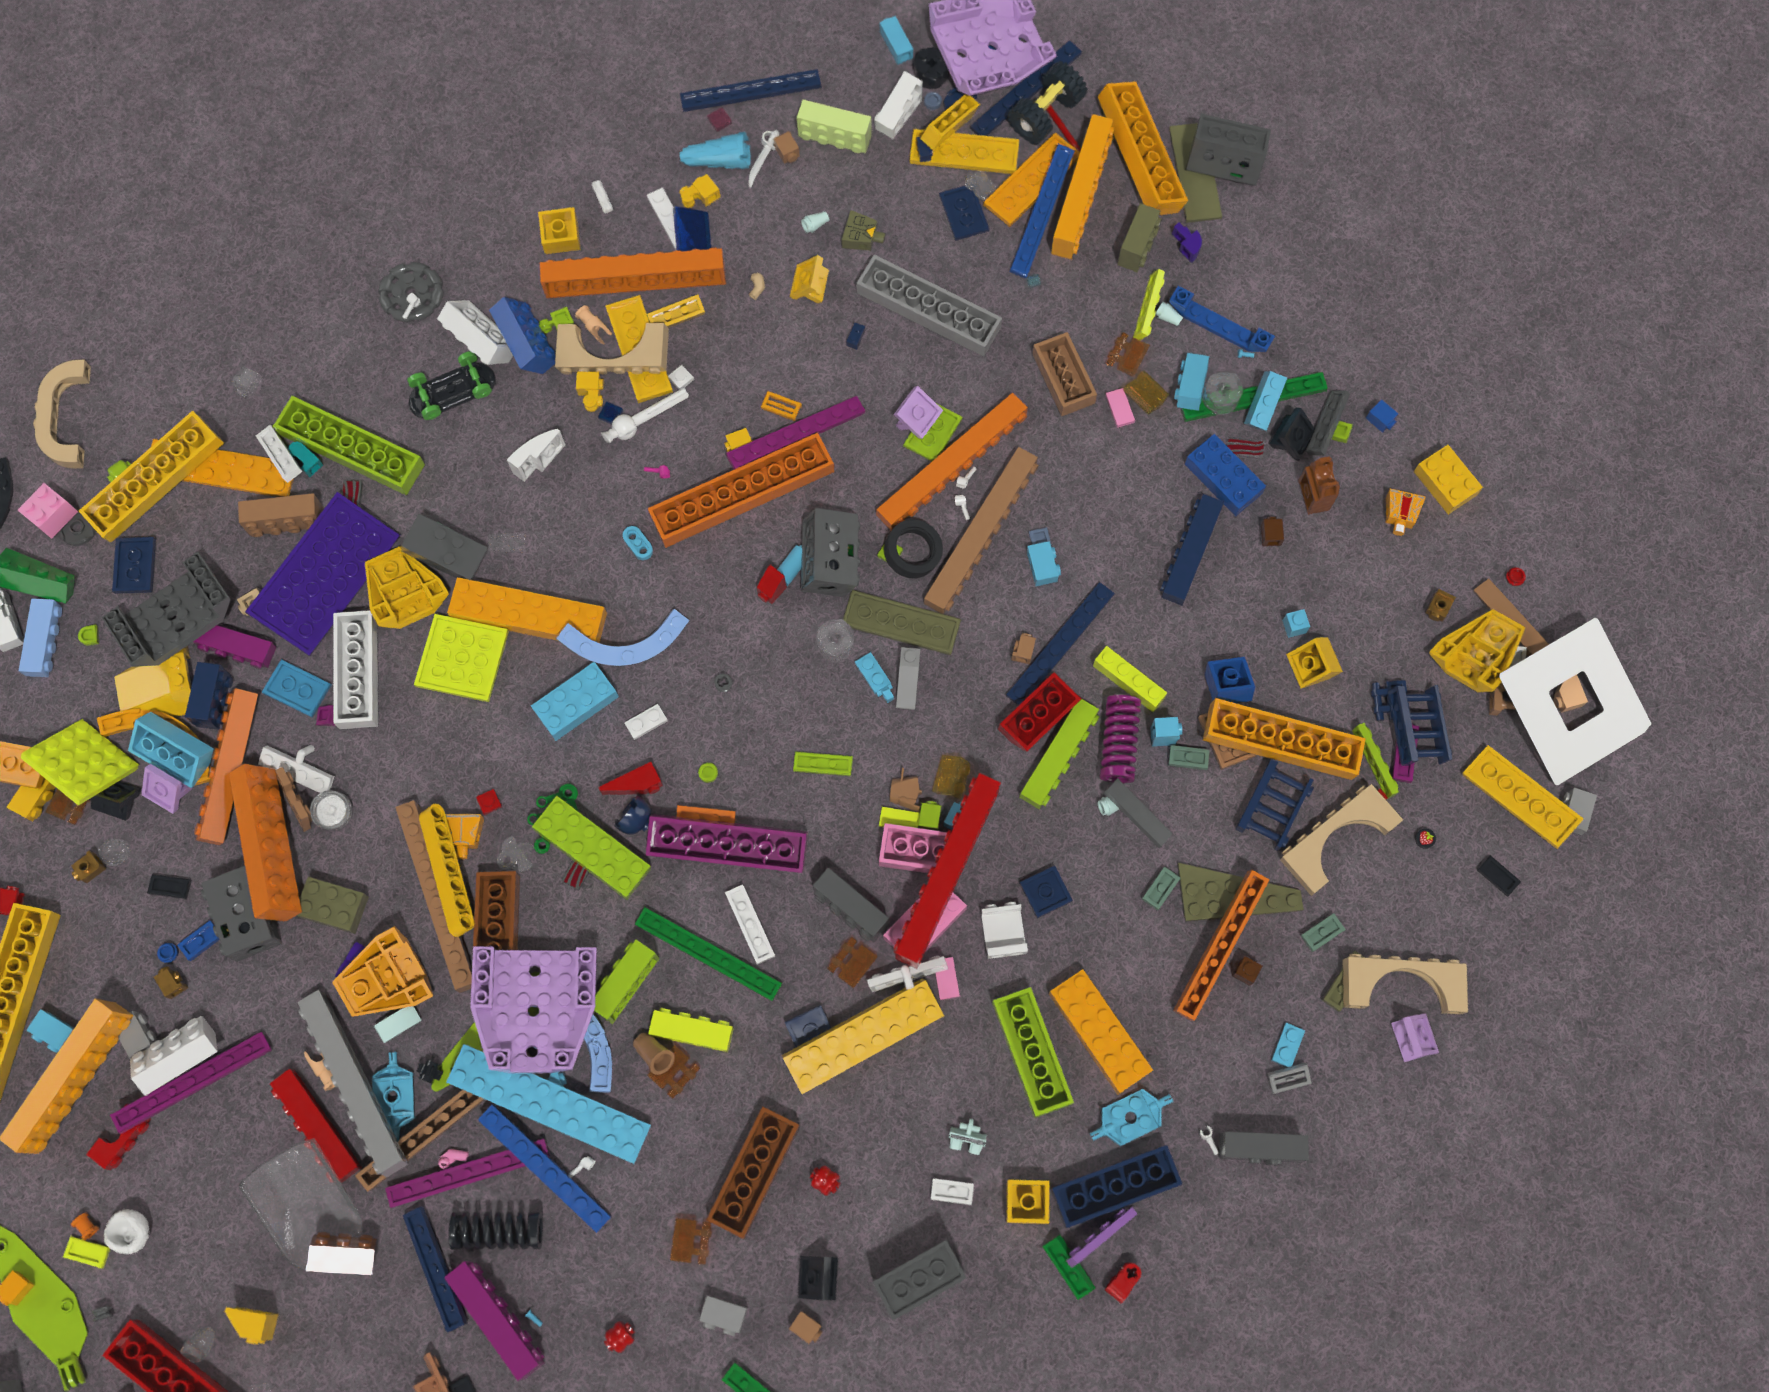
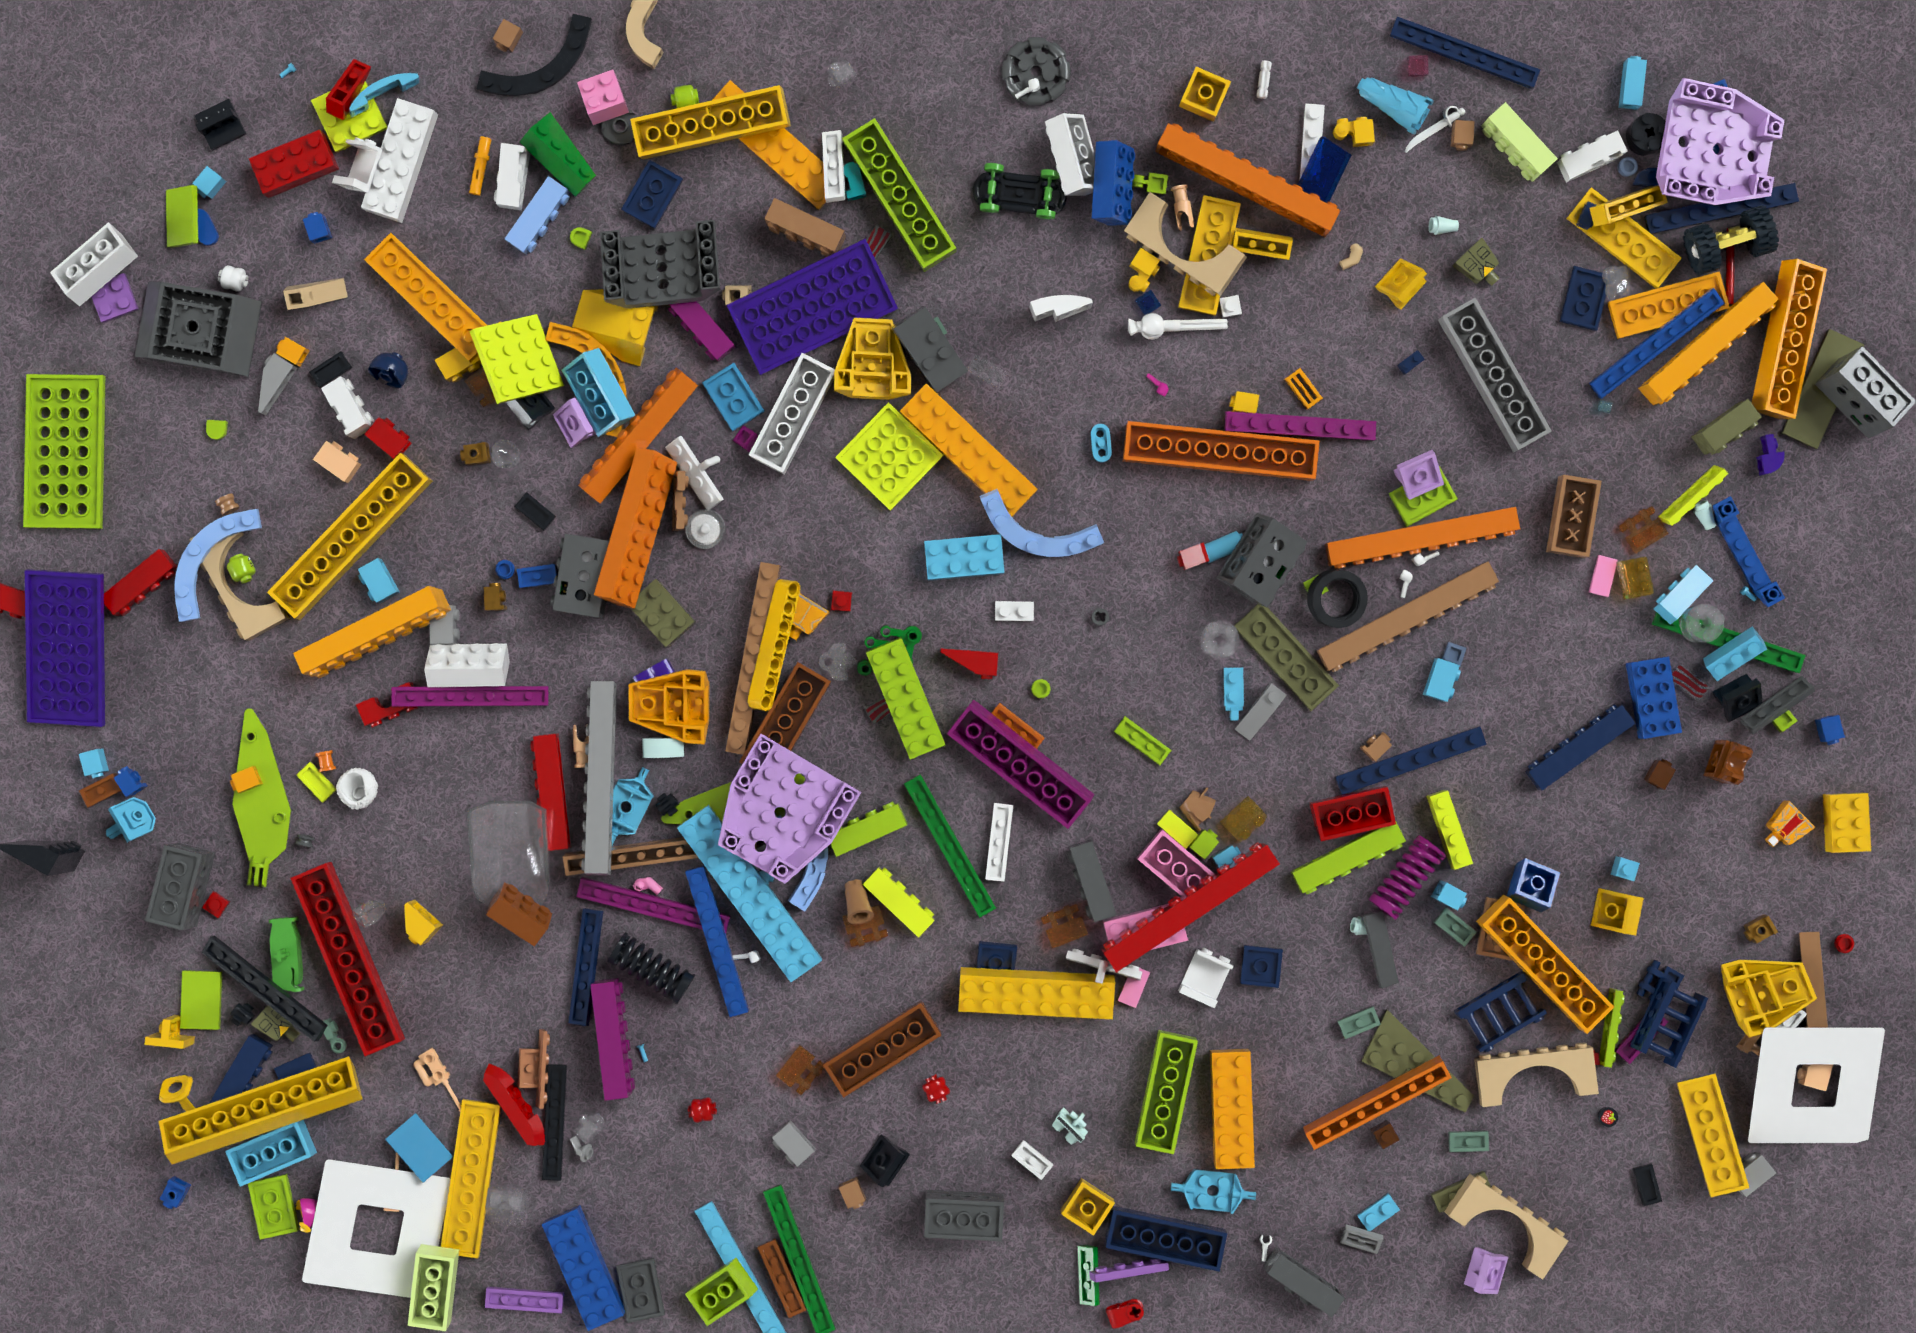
camera: 30 degrees right, 15 degrees up
(208, 695) = (655, 362): dark blue brick -> none
(634, 817) = (956, 692): dark blue cylinder -> none

